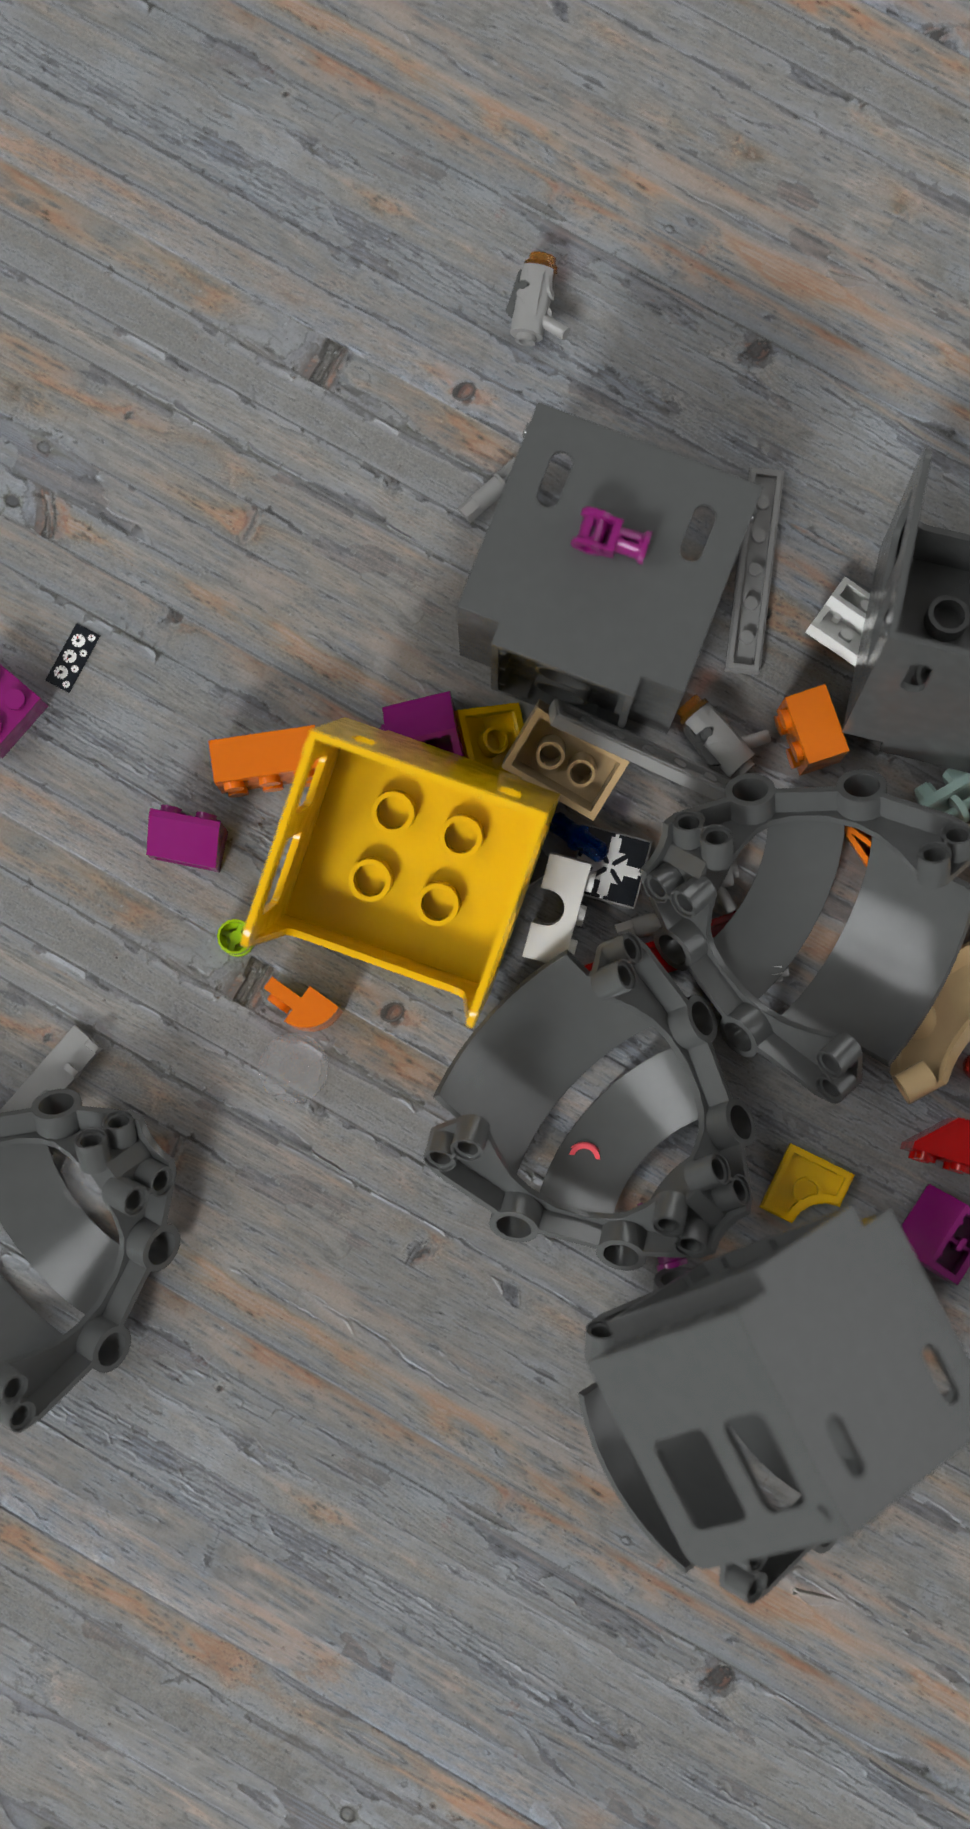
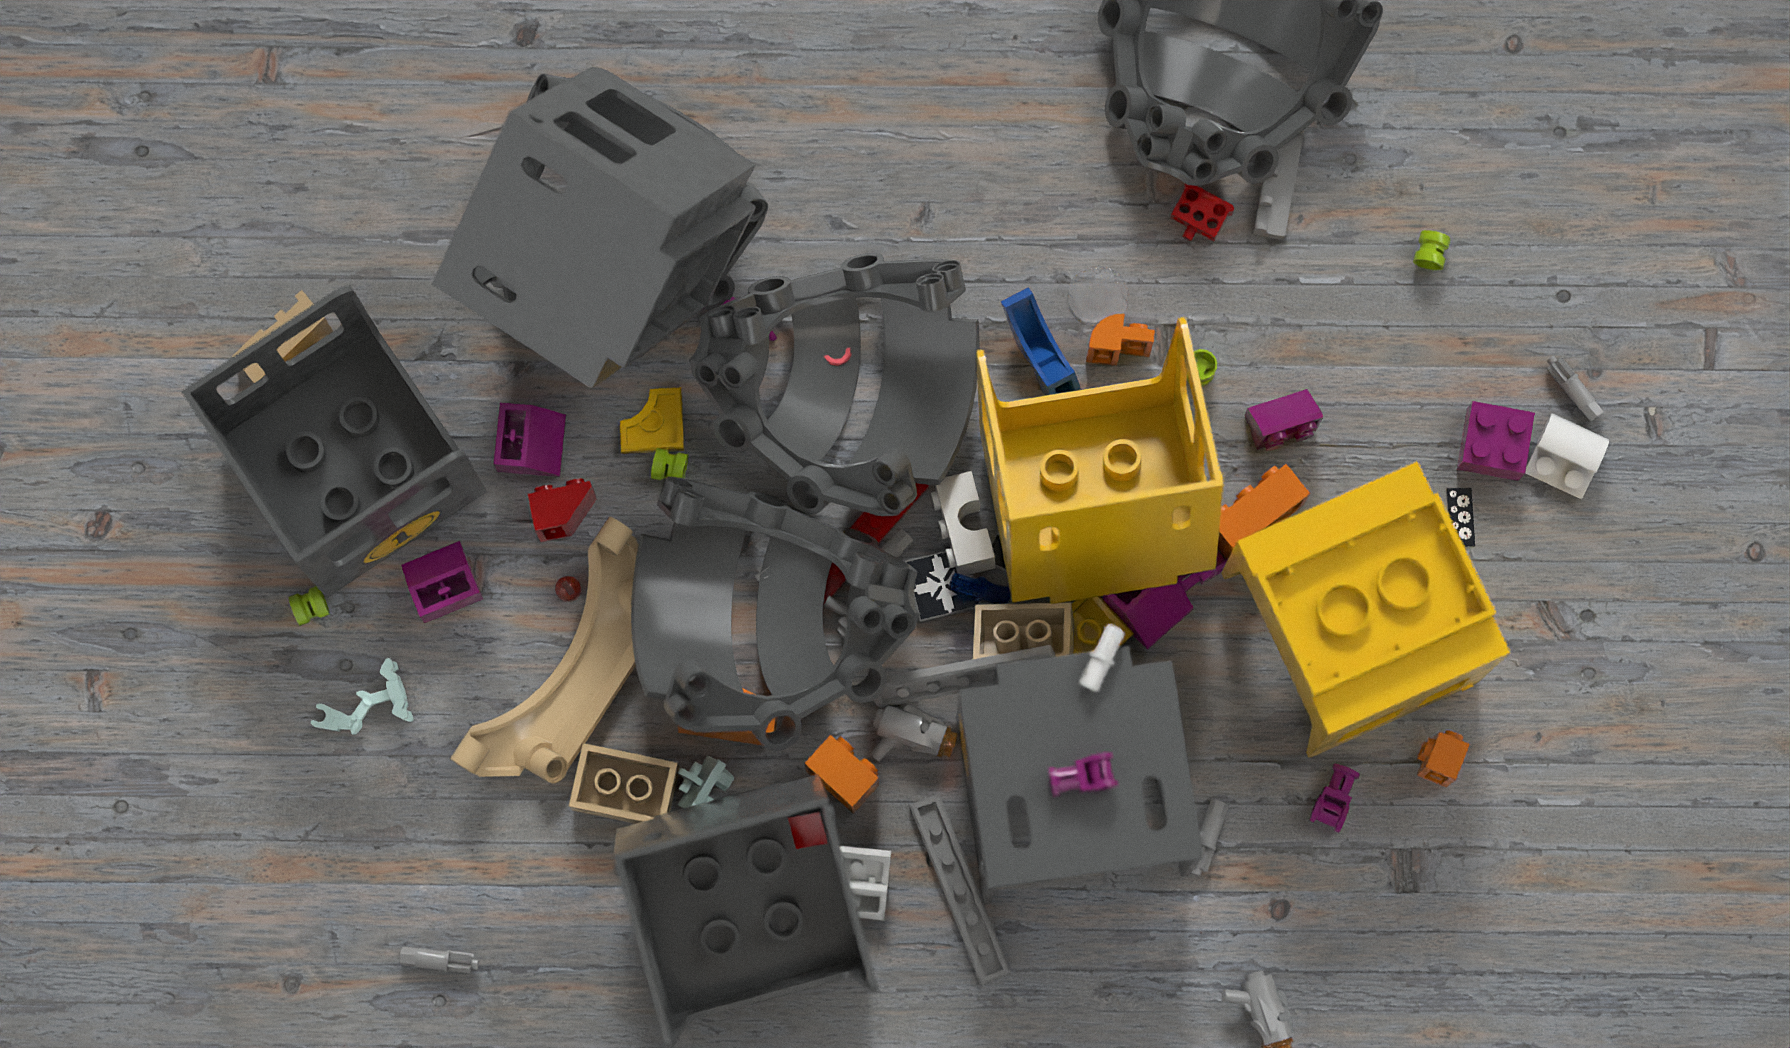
camera: 150 degrees right, 5 degrees down
(131, 1093) = (1204, 204): none -> red piece
(222, 577) = (1371, 605): none -> yellow piece
(232, 433) = (1442, 757): none -> orange brick
(357, 455) = (1333, 803): none -> magenta connector
(383, 1040) = (1038, 344): none -> blue arch
(527, 640) = (1102, 658): none -> white axle
(815, 1131) = (677, 464): none -> lime wheel

